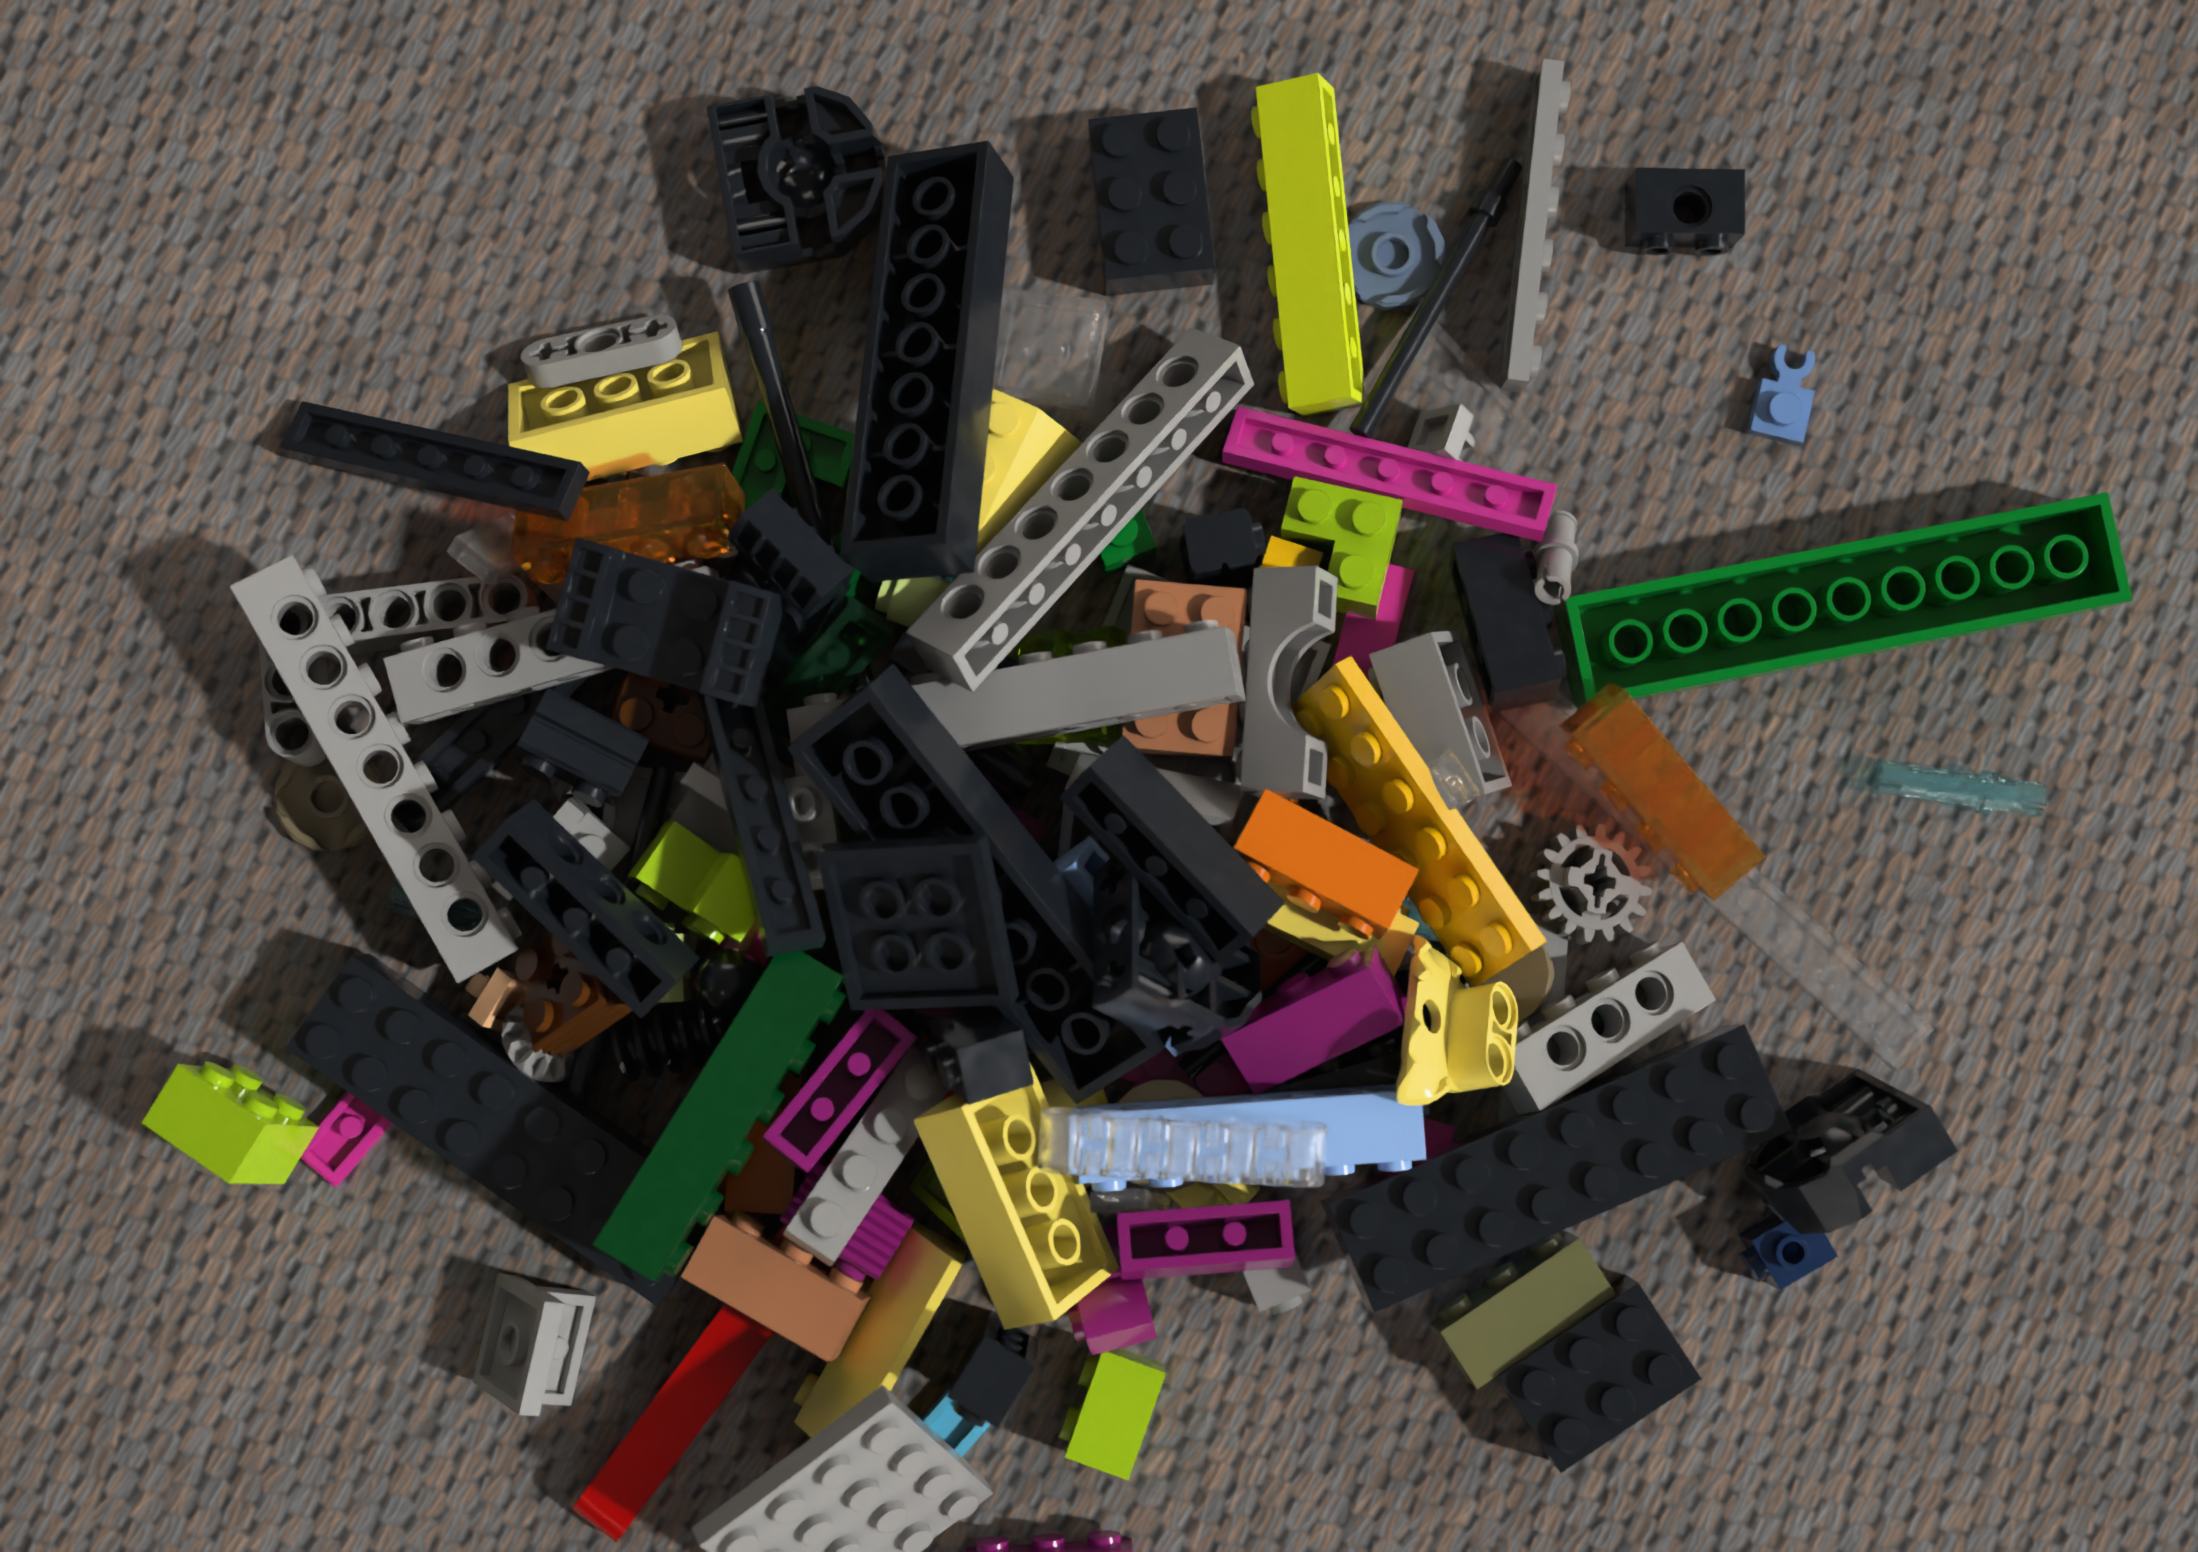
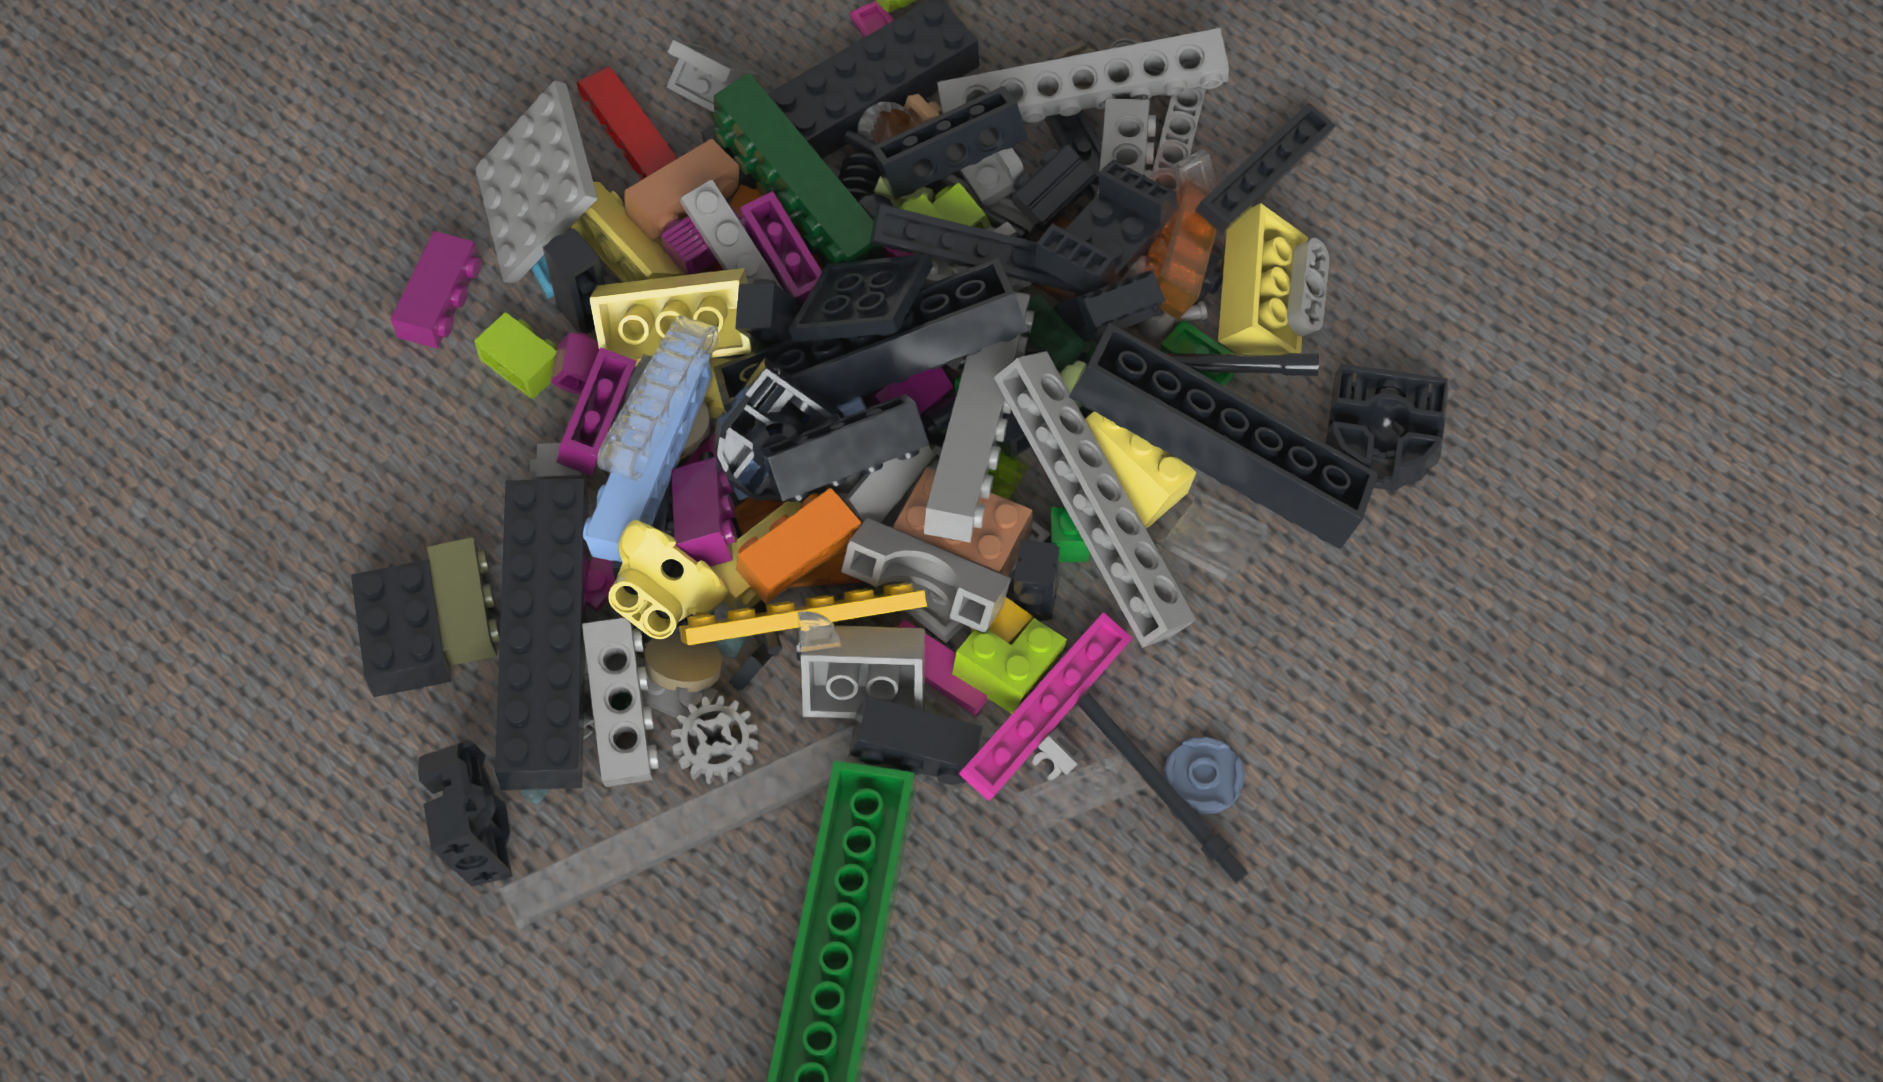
camera: 115 degrees right, 25 degrees down
(1151, 201) = (1293, 627): black brick -> none
(1309, 246) = (1227, 715): neon yellow brick -> none
(1537, 204) = (1204, 874): light grey plate -> none
(1556, 558) = (946, 789): light grey pin -> none
(1661, 792) = (755, 782): clear orange brick -> none
(1712, 196) = (1164, 998): black brick -> none
(1781, 405) = (997, 996): medium blue plate -> none
(1781, 1253) = (409, 788): dark blue brick -> none
(1981, 791) = (663, 1024): clear light blue pin -> none

